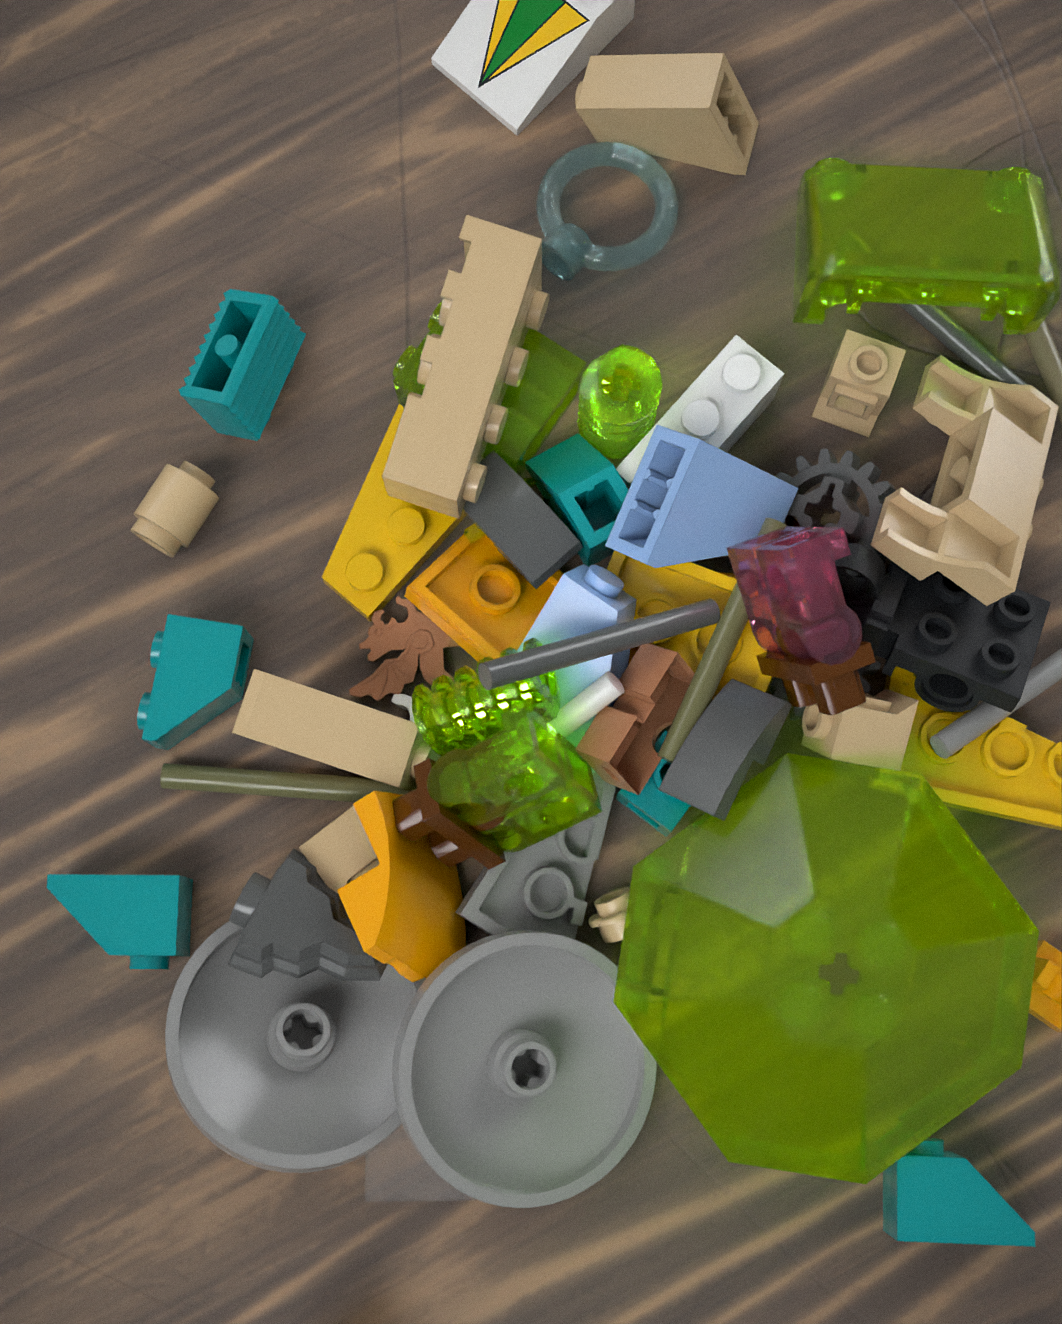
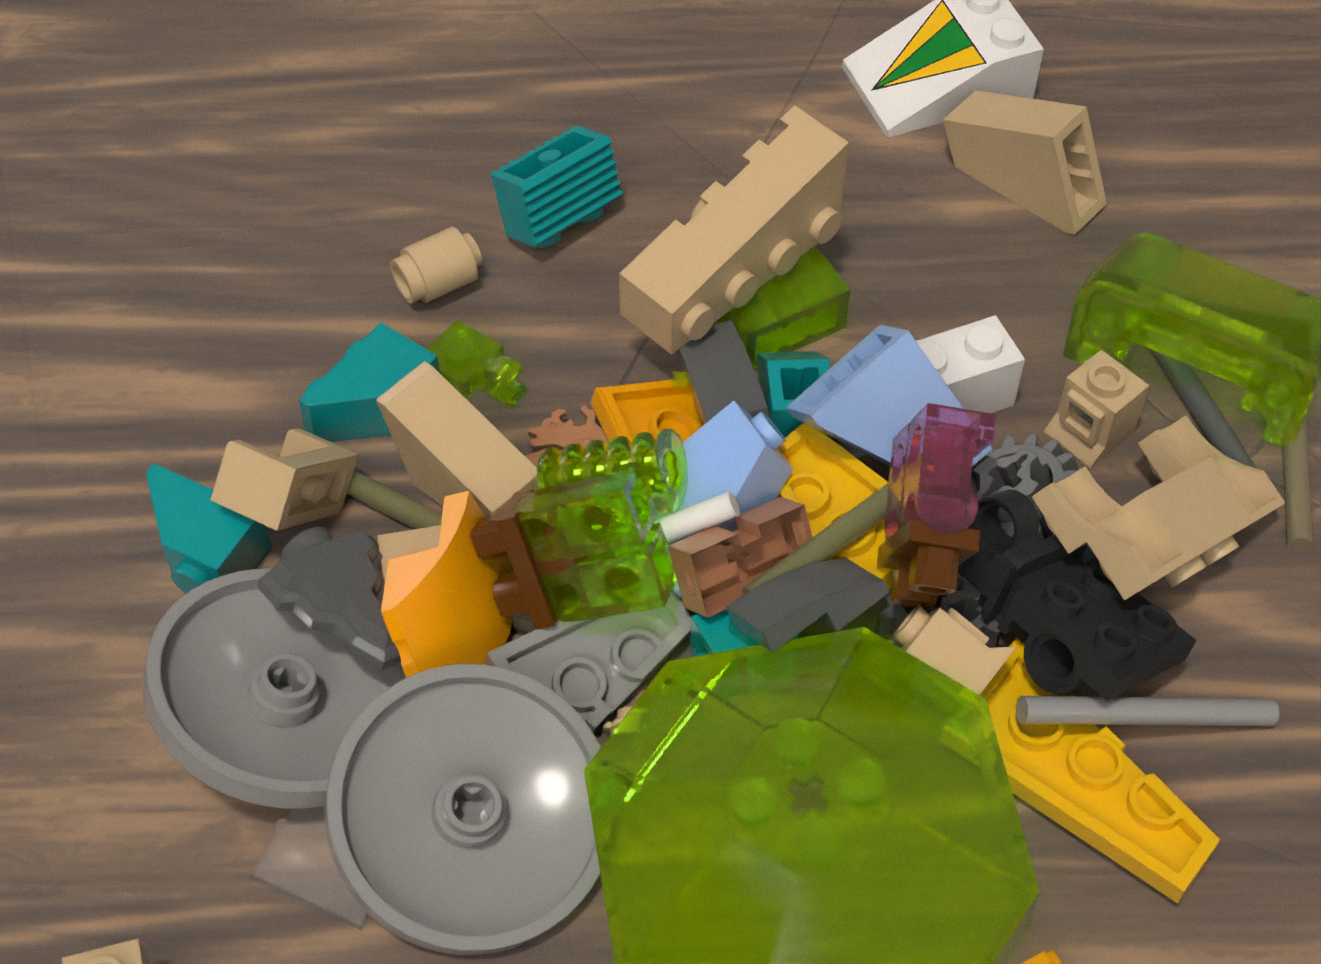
camera: 25 degrees right, 25 degrees down
(185, 832) = (285, 490): none -> tan panel
(262, 597) = (476, 361): none -> clear neon green plate
(383, 539) = (598, 356): yellow wing -> none
(567, 246) = (885, 219): clear light blue piece -> none
(597, 644) = (734, 456): dark grey bar -> none
(618, 400) = (858, 305): clear neon green piece -> none

